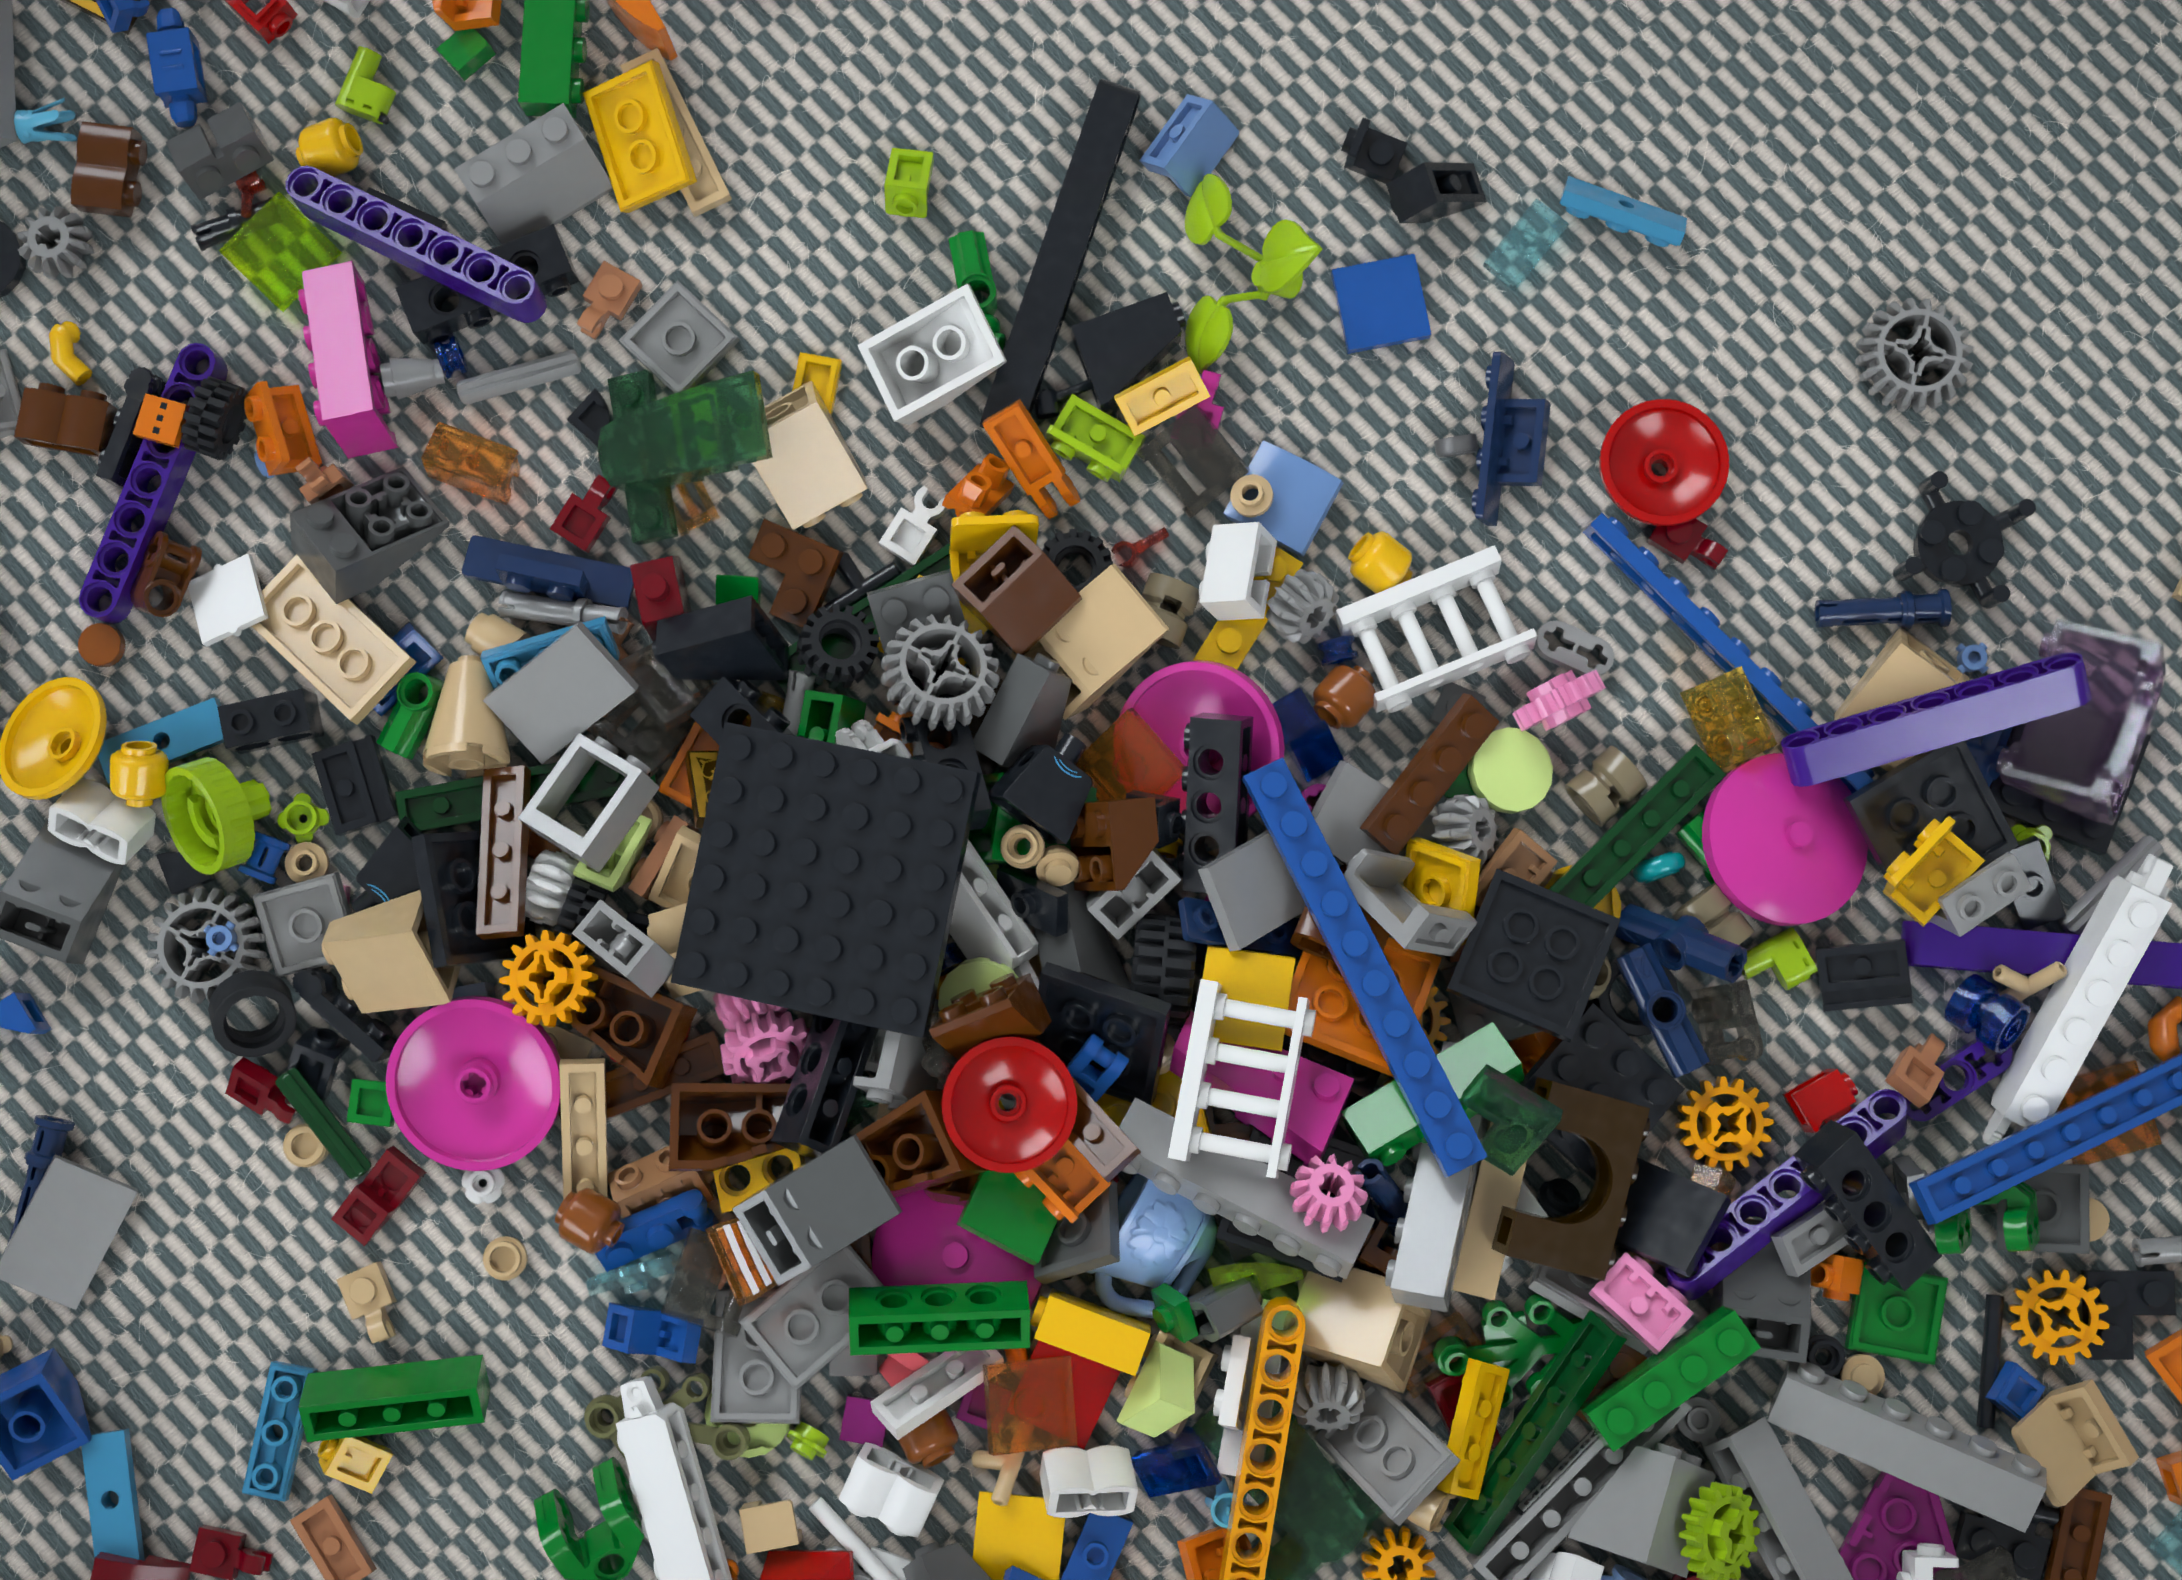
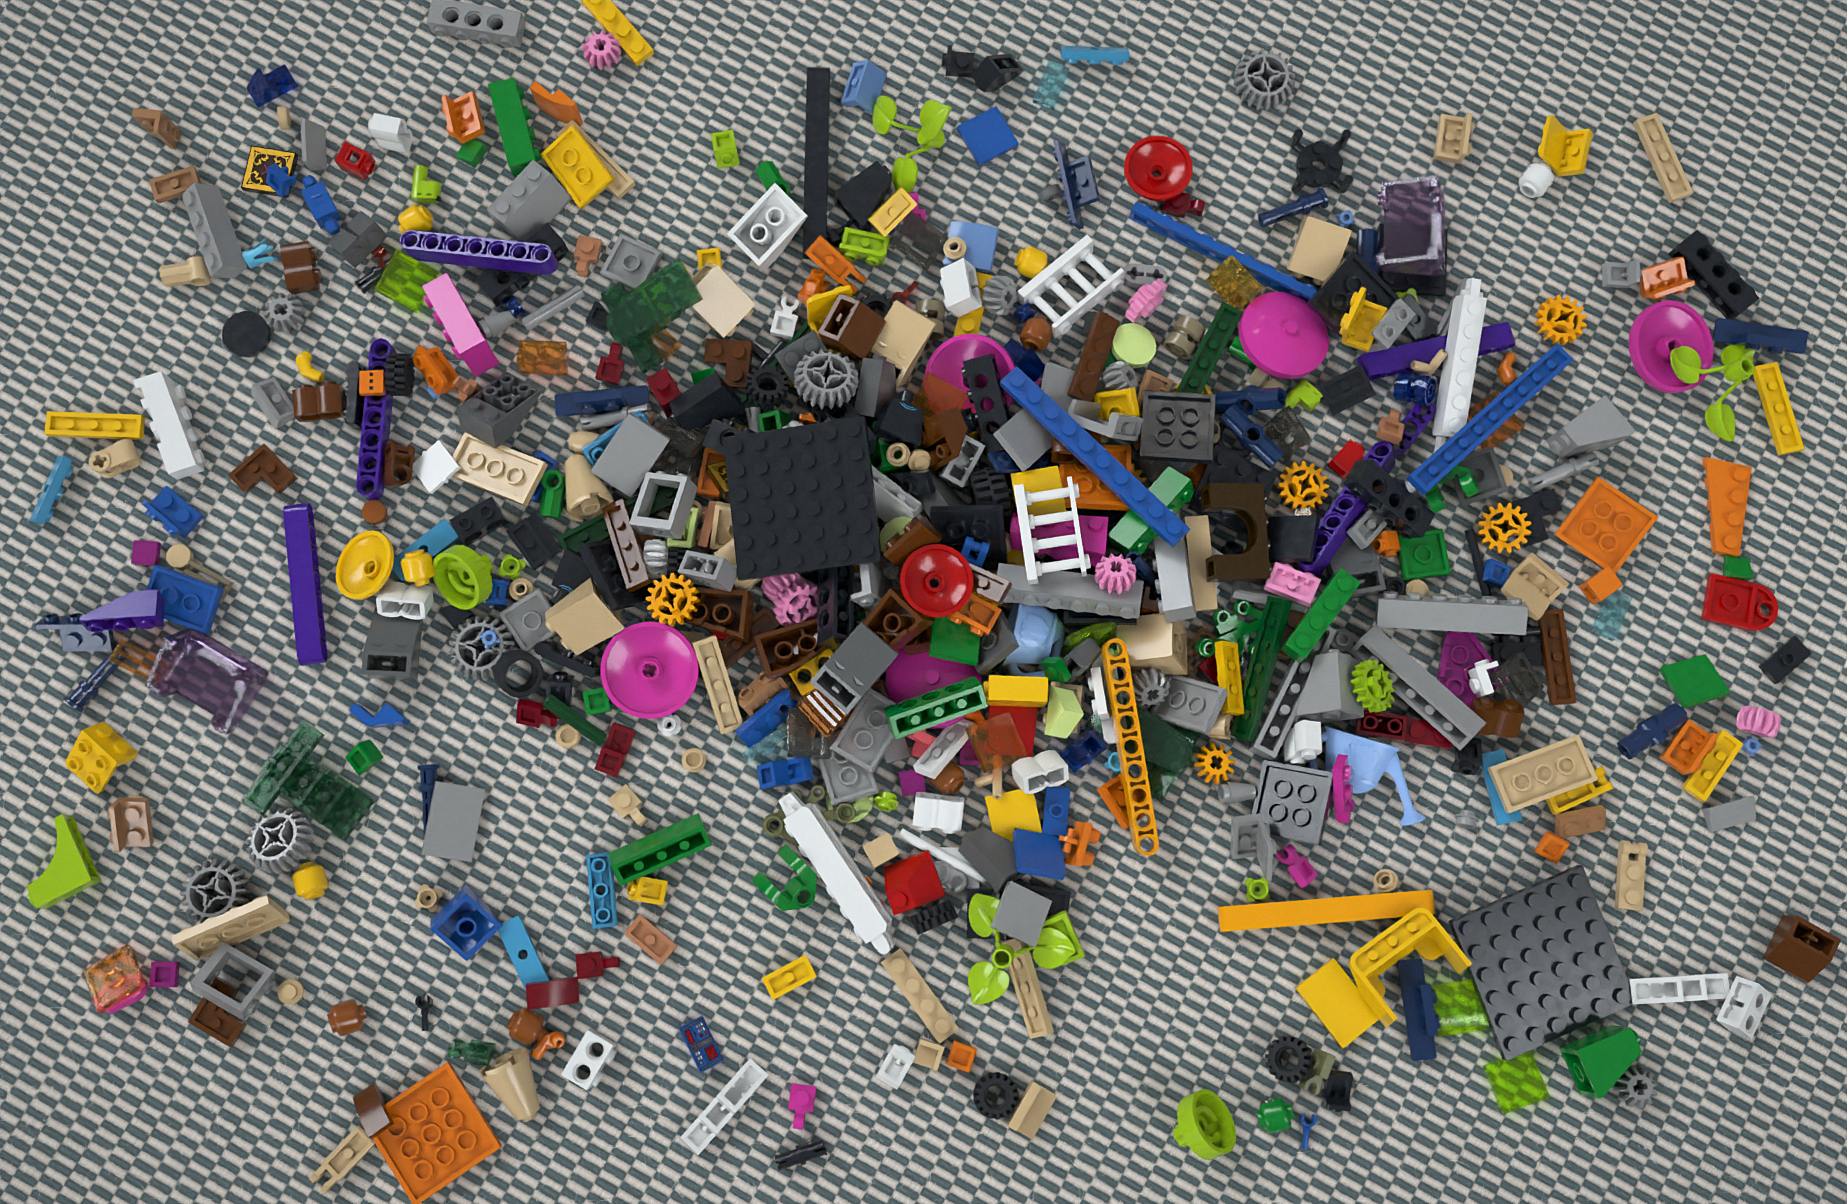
camera: 25 degrees left, 5 degrees down
(589, 1220) = (734, 720): dark orange head -> none
(1518, 1115) = (1199, 505): clear green plate -> none
(1658, 867) = (1225, 370): teal piece -> none
(1936, 719) = (1338, 247): beam -> none

